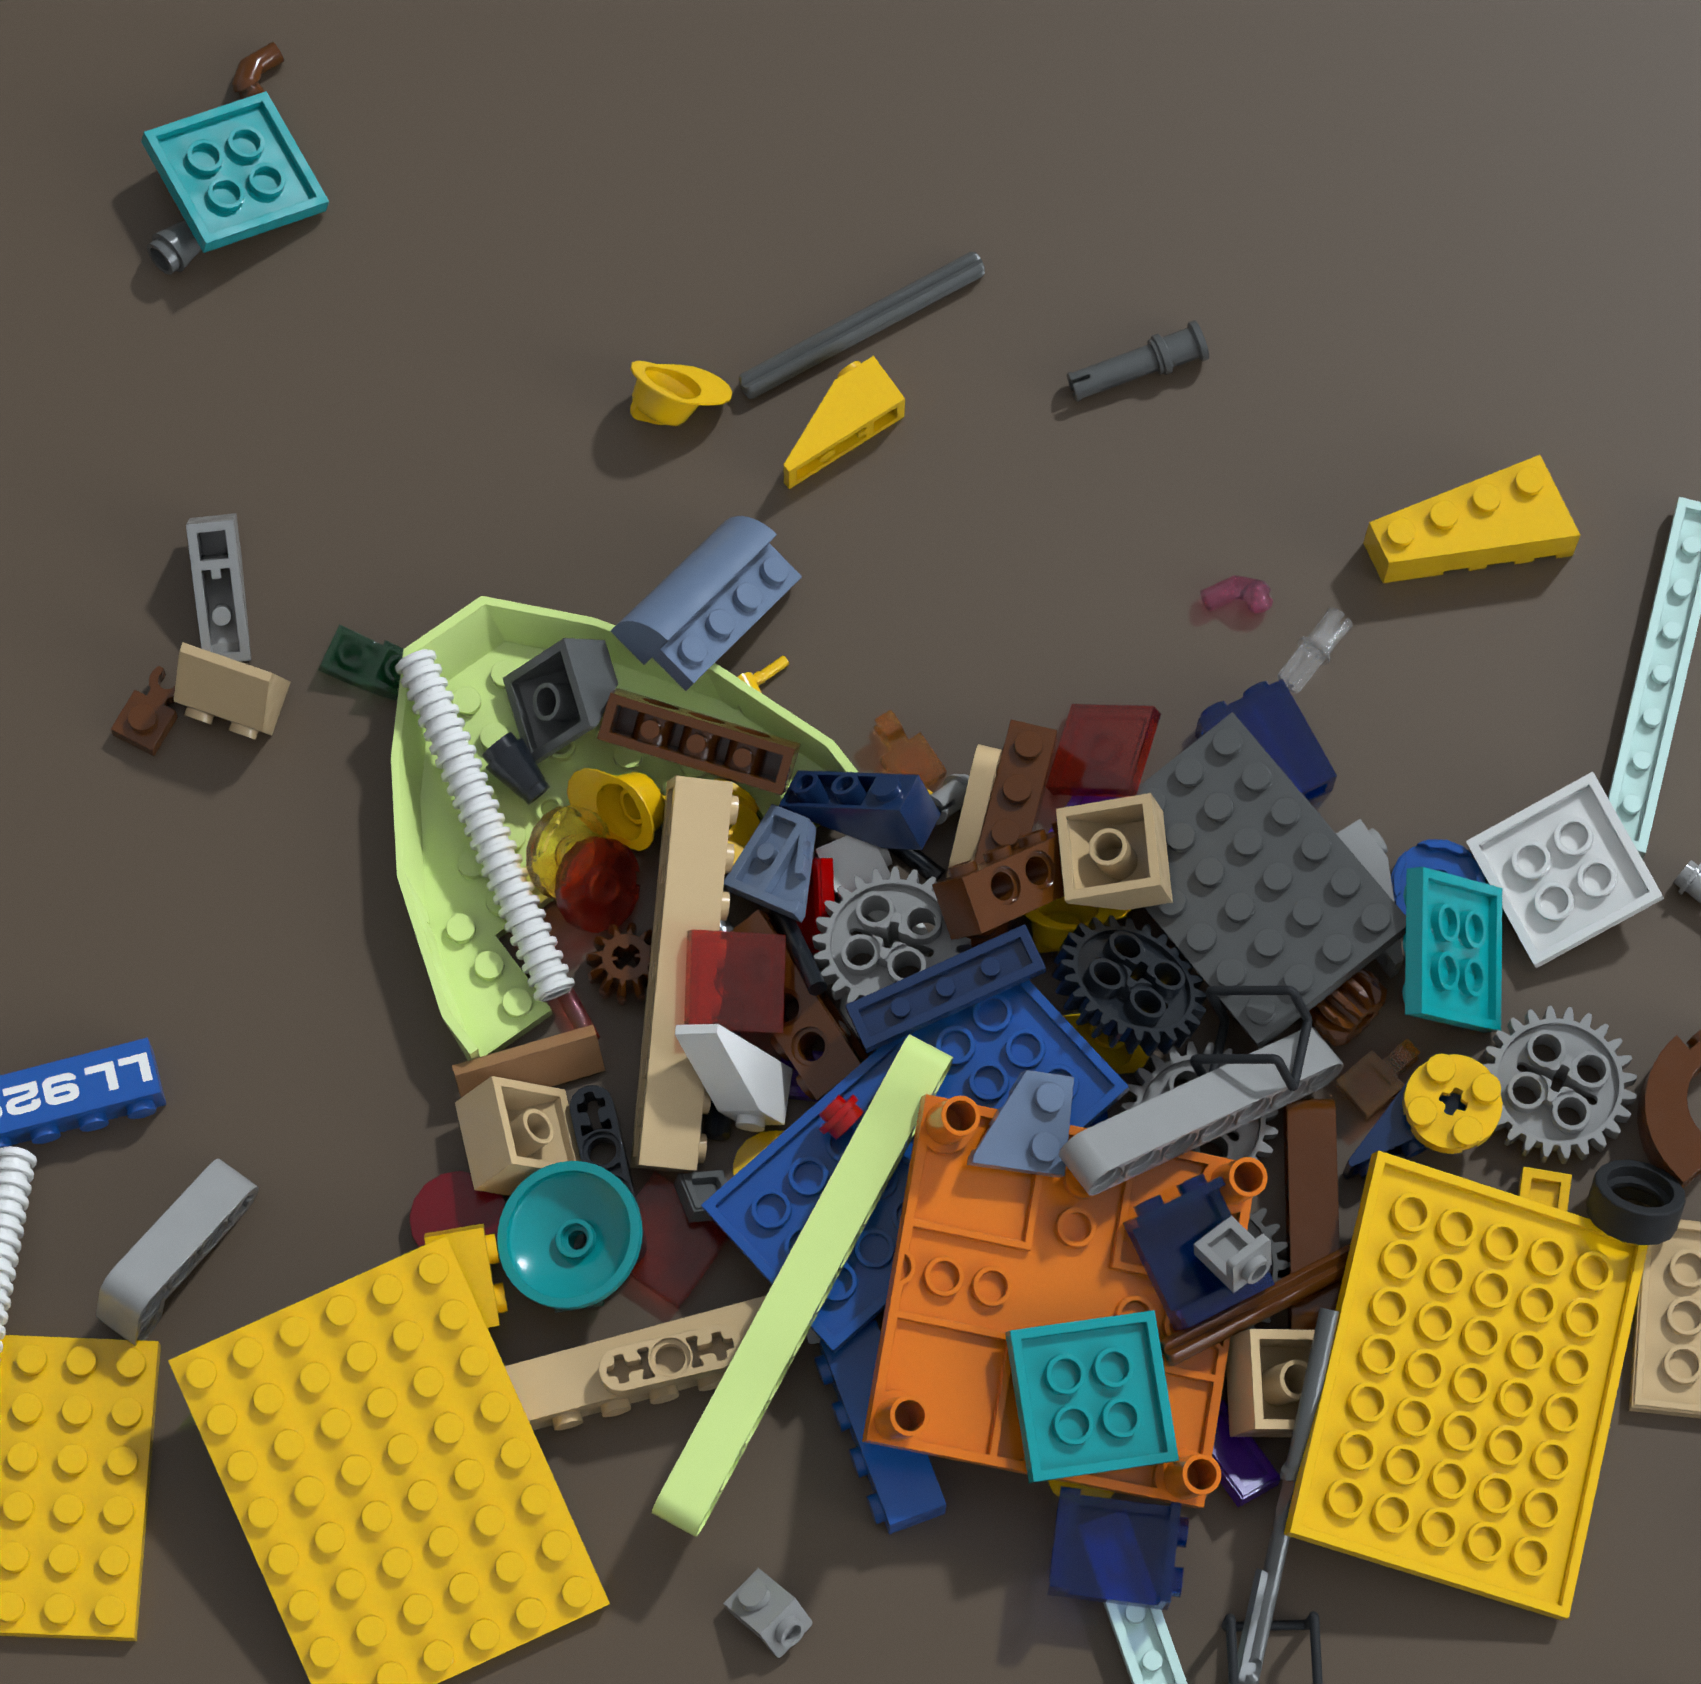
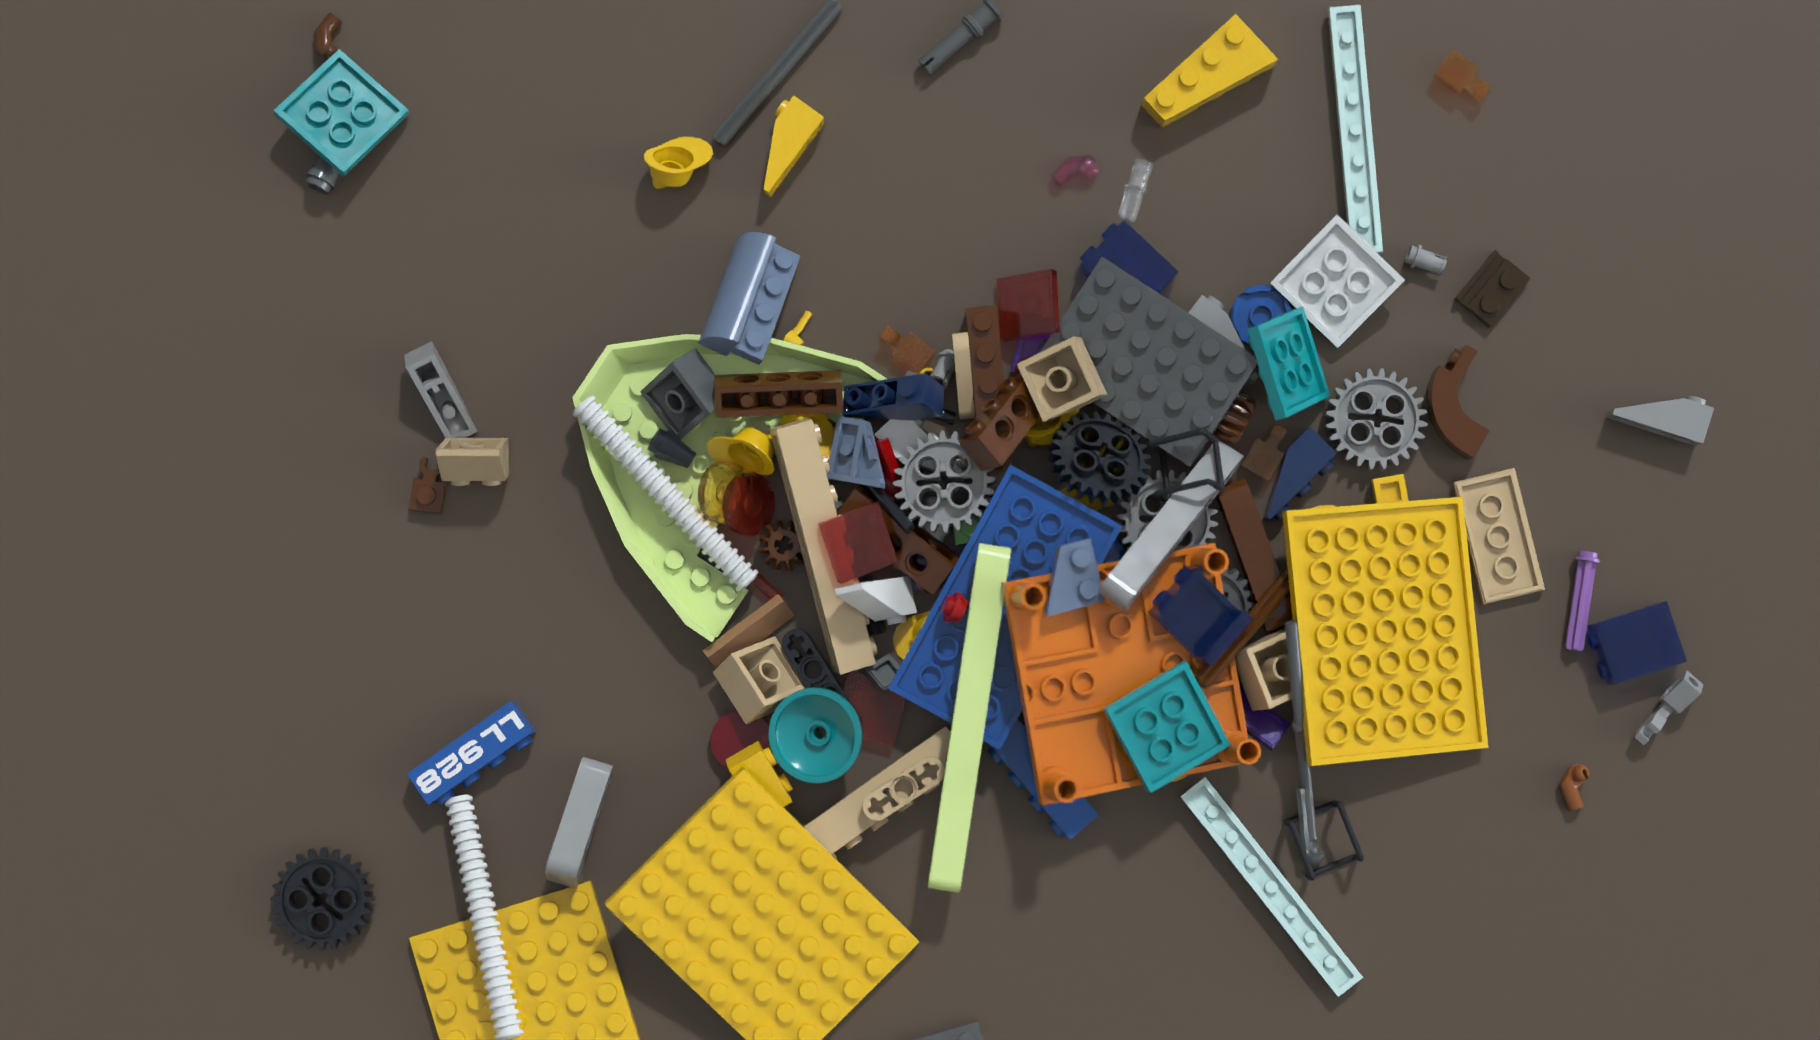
camera: 15 degrees left, 15 degrees up
(363, 662) = (548, 408): clear green slope -> none
(769, 1612) = (1014, 913): light grey bracket -> none
(945, 988) = (990, 505): dark blue plate -> none
(1116, 1550) = (1209, 805): clear blue panel -> none
(1234, 1254) = (1223, 611): light grey bracket -> none
(1426, 1114) = (1305, 471): yellow plate -> none
(1629, 1221) = (1447, 496): black tyre -> none

